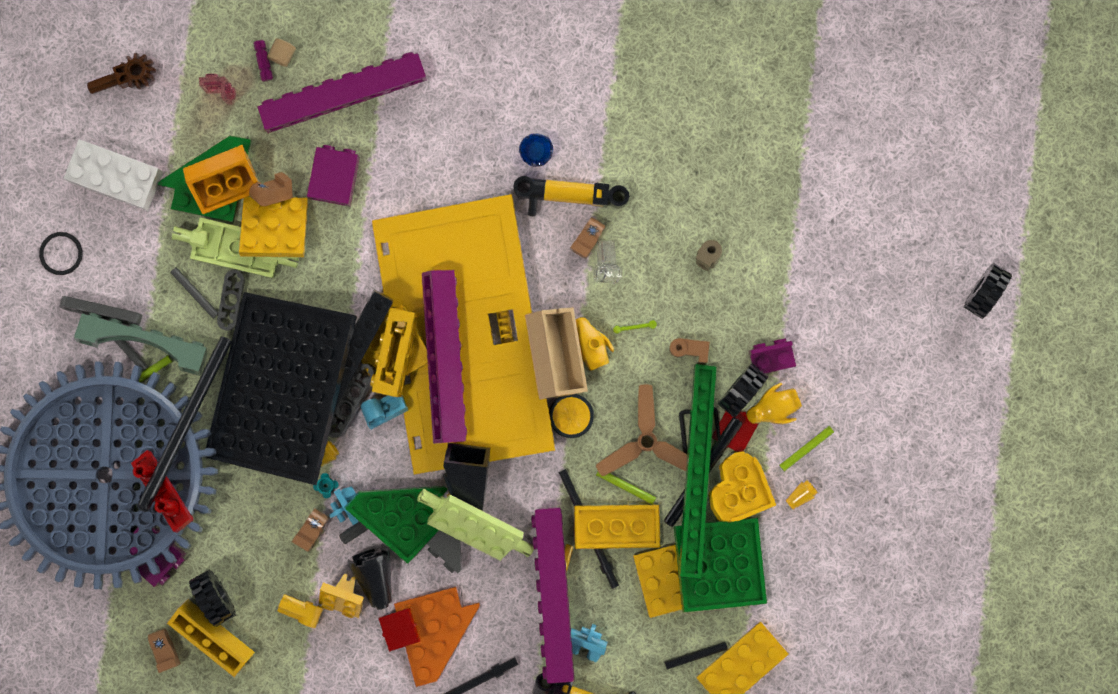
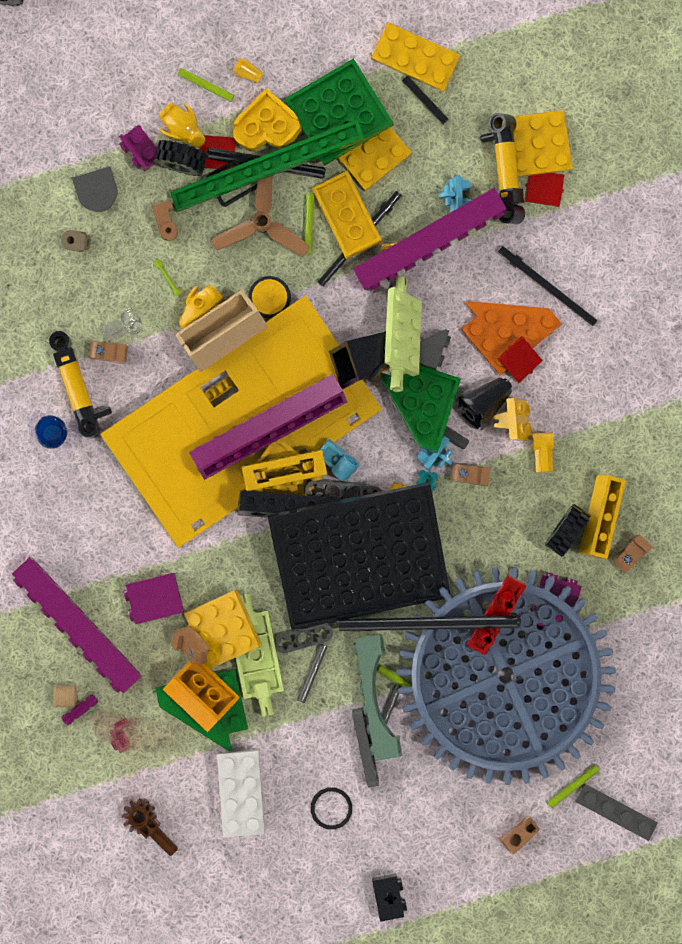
camera: 115 degrees left, 0 degrees up
(751, 297) = (96, 189): none -> dark grey tile

